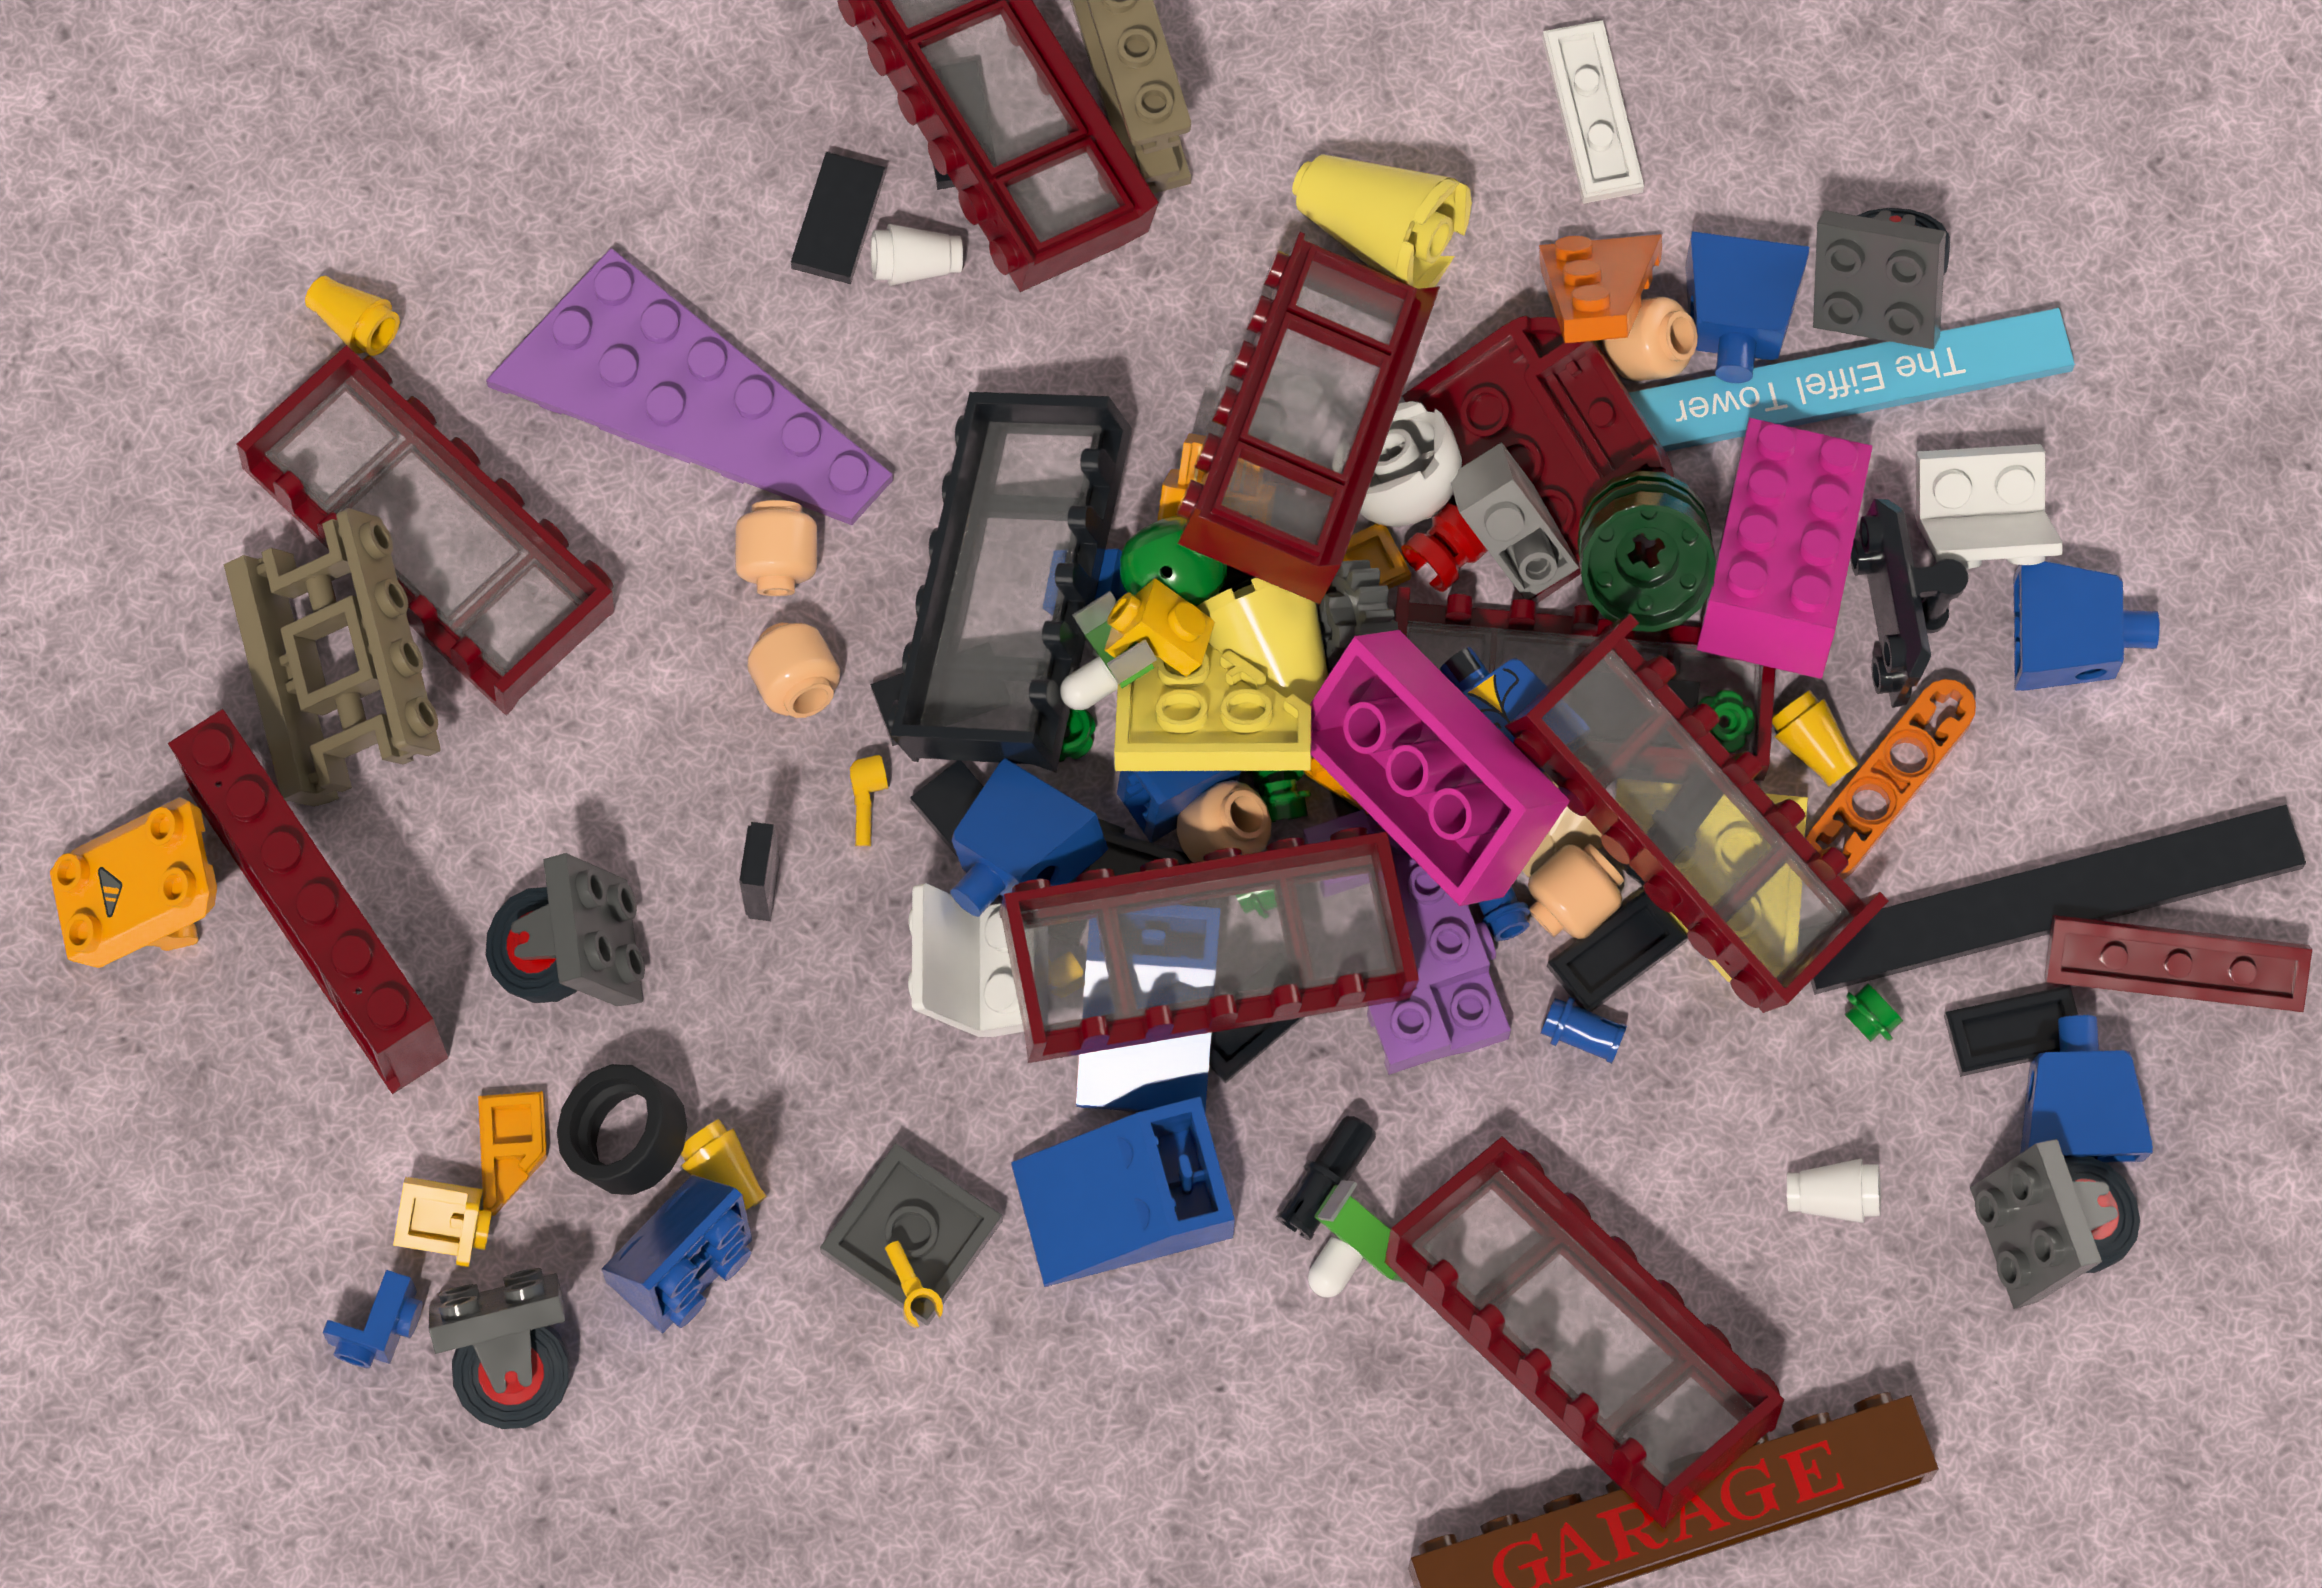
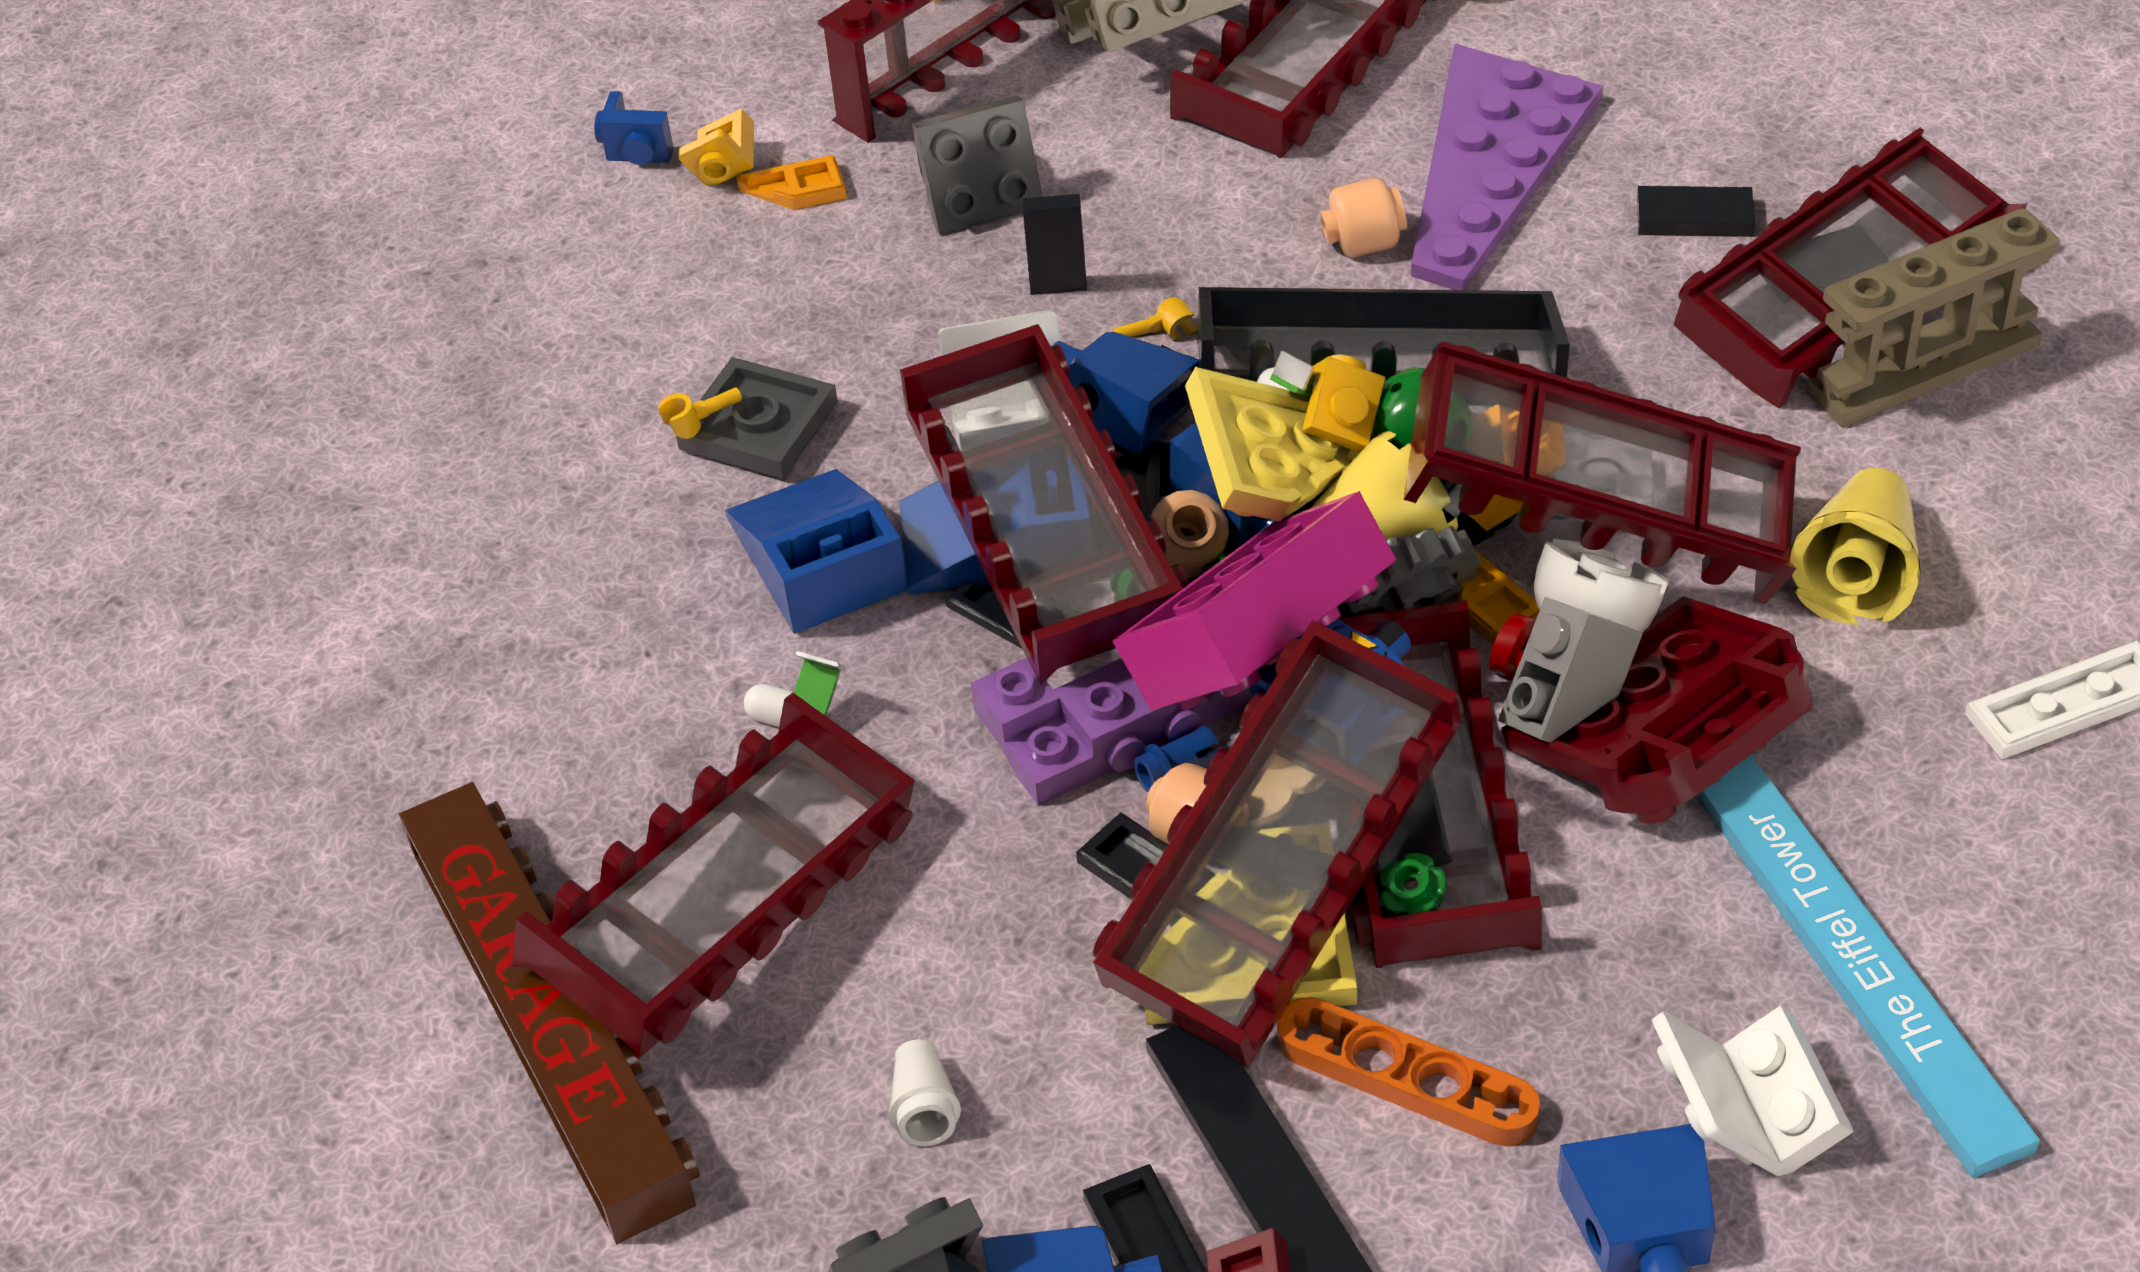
camera: 85 degrees right, 25 degrees down
(507, 1356) = (617, 190): plate -> none
(587, 1110) = (812, 219): black tyre -> none
(681, 1252) = (701, 256): blue slope -> none
(720, 1158) = (799, 293): yellow cone -> none
(794, 669) = (1256, 249): light nougat head -> none
(913, 254) = (1675, 247): white cone -> none
(1332, 1165) = (876, 685): black axle -> none
(1583, 1029) = (1058, 838): blue pin -> none
(1598, 283) = (1855, 690): orange wing -> none
(1653, 583) = (1558, 744): dark green wheel -> none
(1657, 344) = (1842, 782): light nougat head -> none
(1742, 298) = (1909, 841): blue torso -> none
(1785, 548) = (1622, 890): dark pink brick -> none
(1814, 737) = (1435, 986): yellow cone -> none
(1872, 1014) = (1125, 1088): green plate -> none
(1881, 275) = (1997, 942): dark grey plate -> none
(1903, 597) = (1598, 1017): black shield -> none

